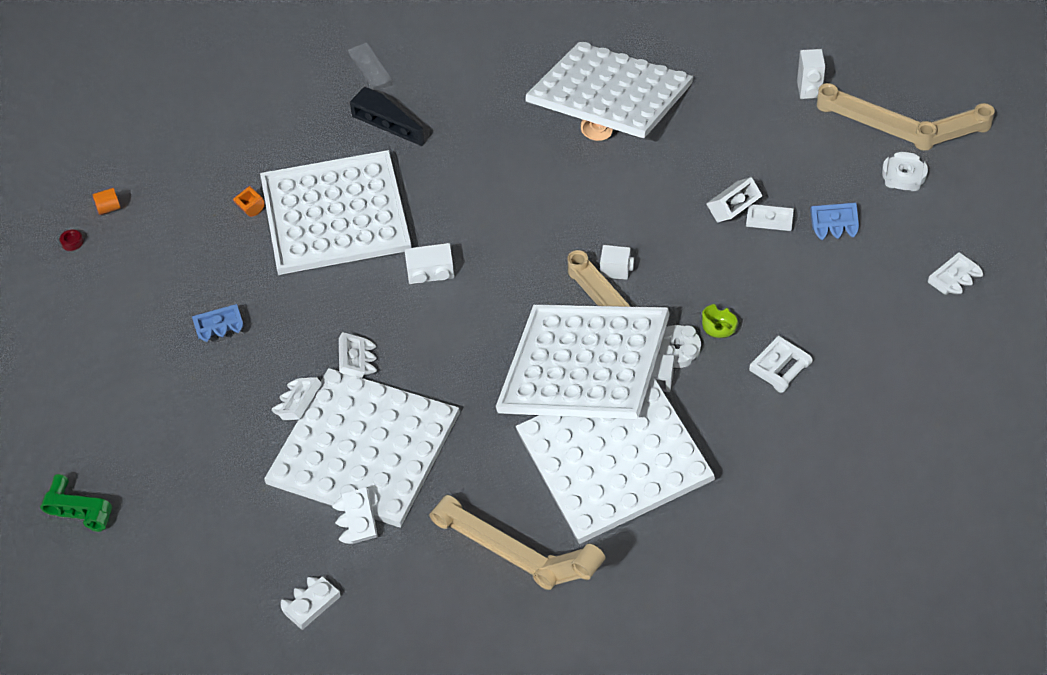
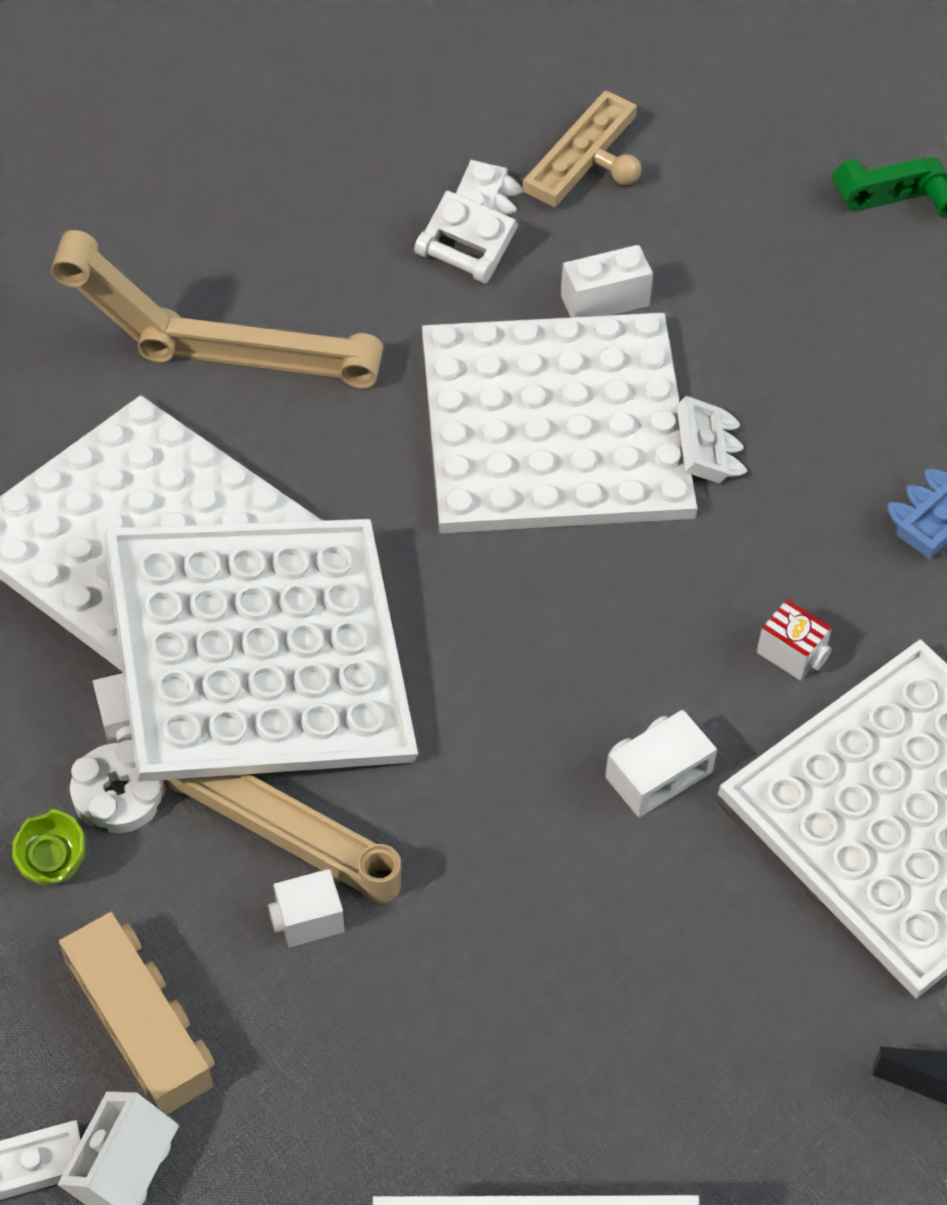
camera: 150 degrees right, 5 degrees up
(228, 605) = (582, 147): none -> tan plate
(284, 501) = (607, 283): none -> white brick
(332, 291) = (795, 640): none -> white brick
(334, 572) = (472, 226): none -> white plate
(355, 355) = (667, 539): white plate -> none
(358, 516) = (487, 304): white plate -> none
(707, 250) = (137, 1013): none -> tan brick

